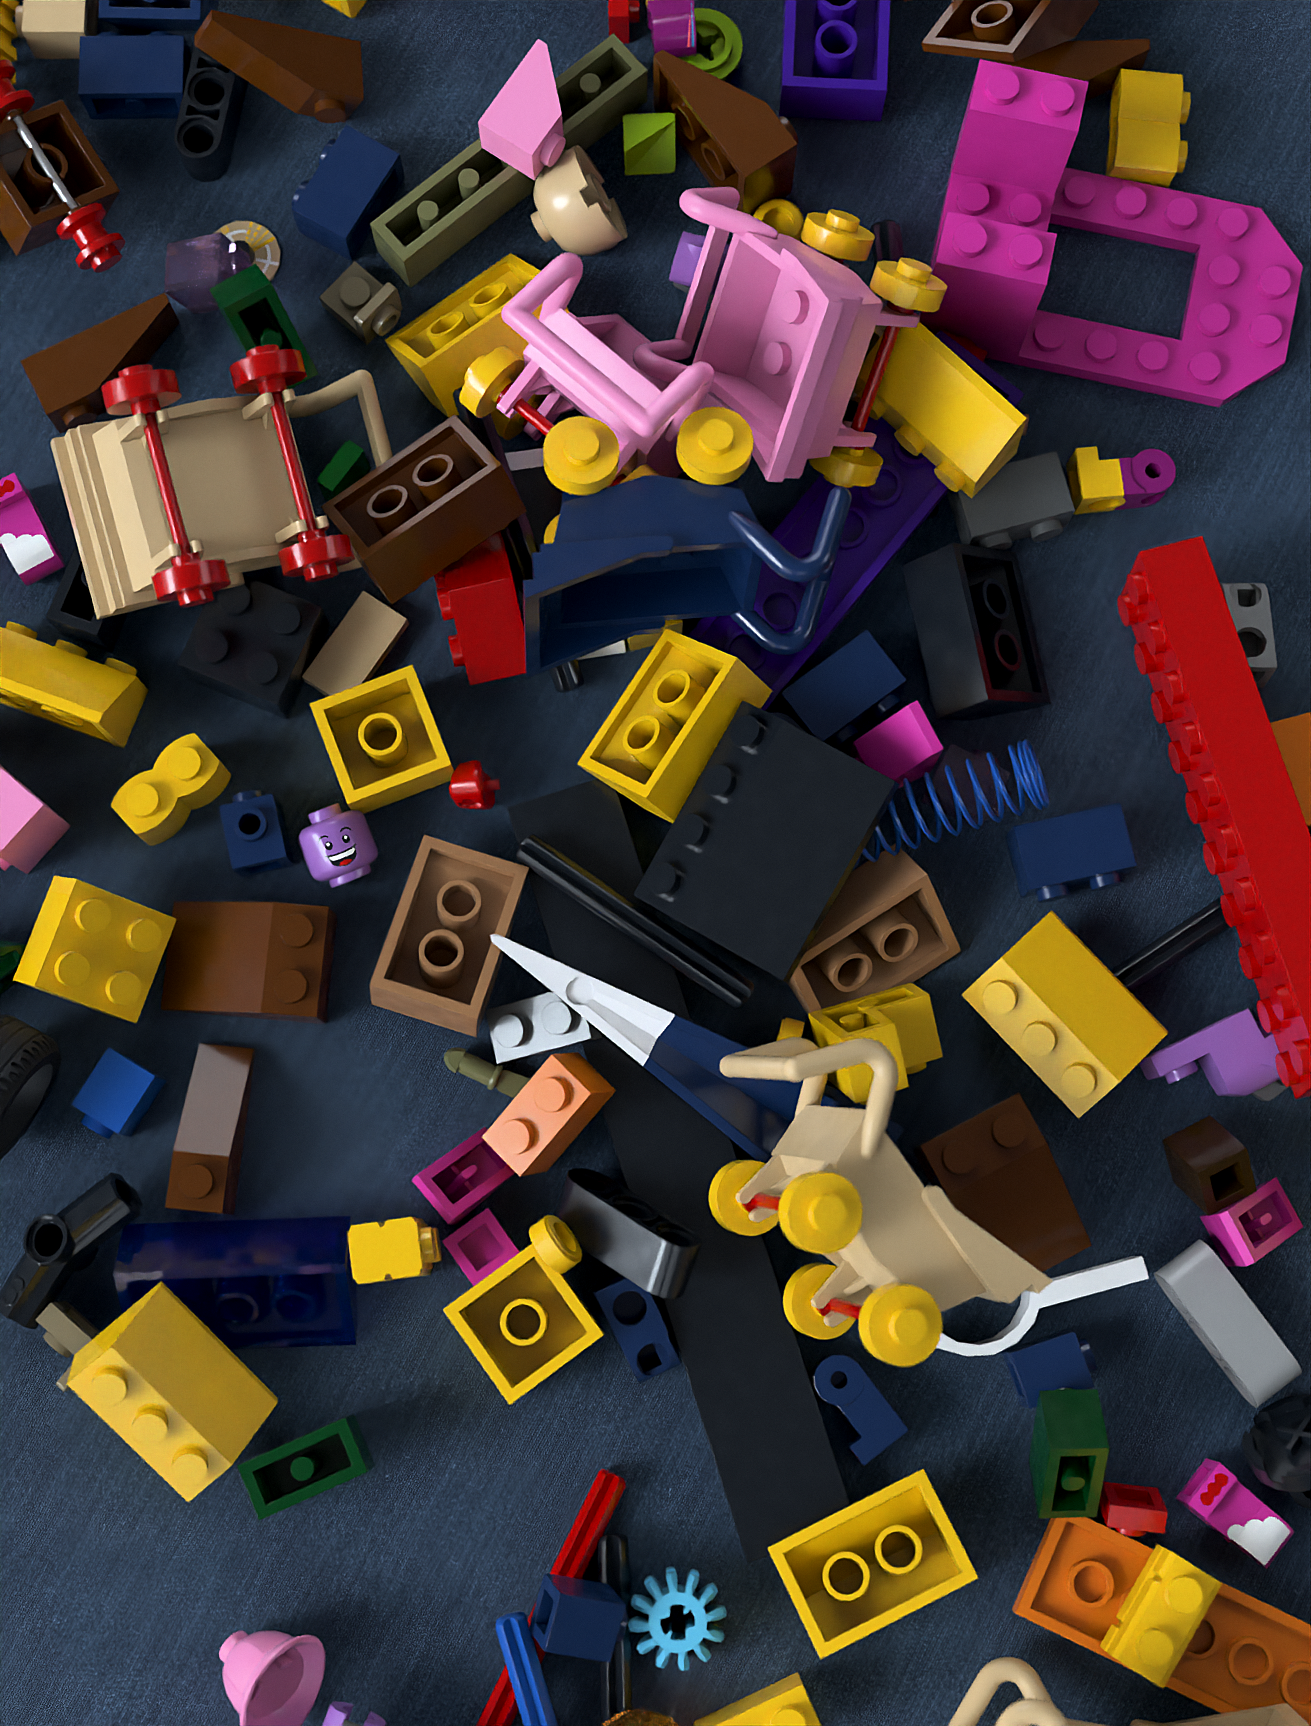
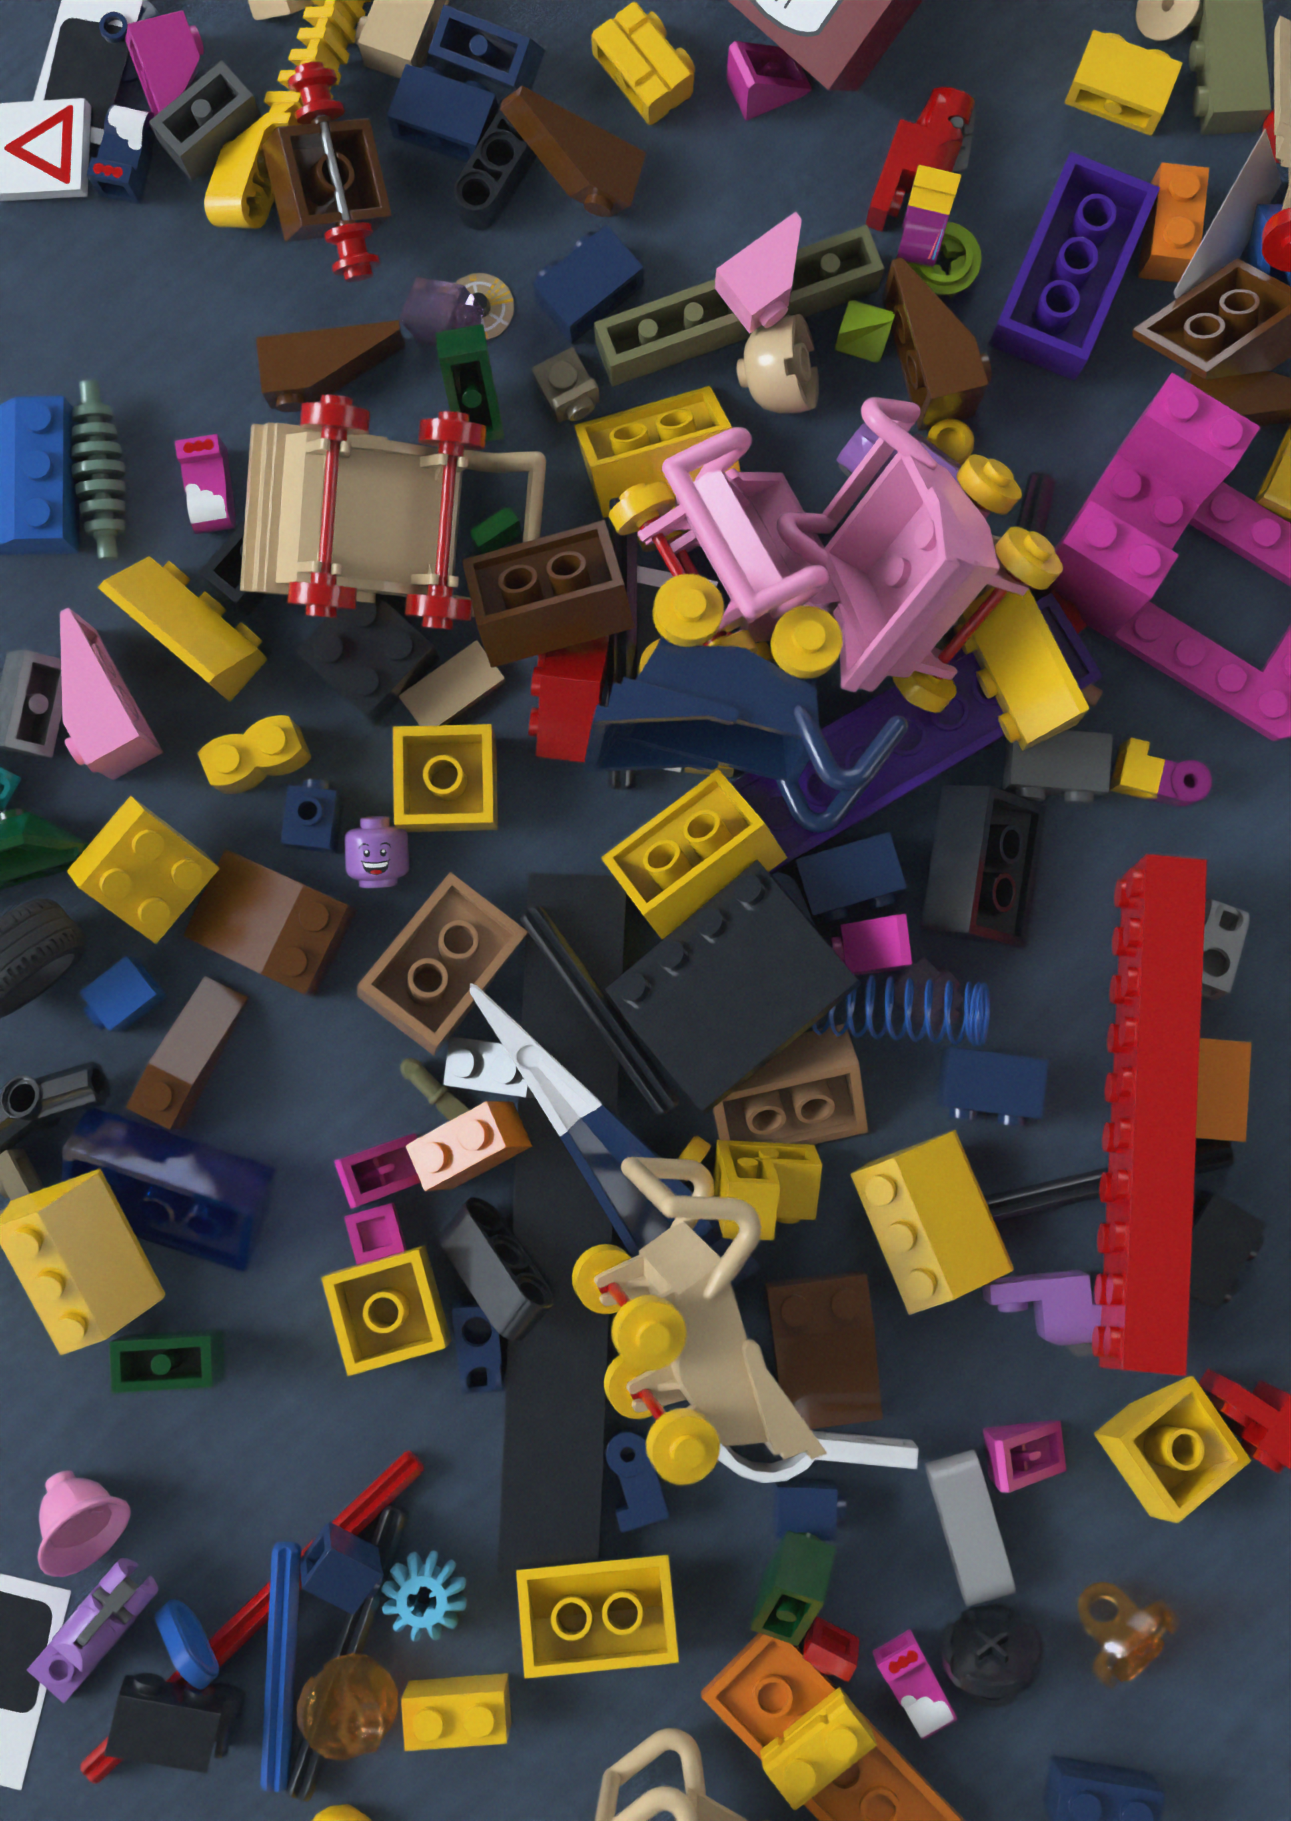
camera: 25 degrees right, 5 degrees up
(393, 1250) = (299, 1212): yellow brick -> none
(473, 787) = (507, 843): red piece -> none
(555, 1244) = (433, 1257): yellow tile -> none
(1209, 1165) = (1005, 1393): dark brown brick -> none

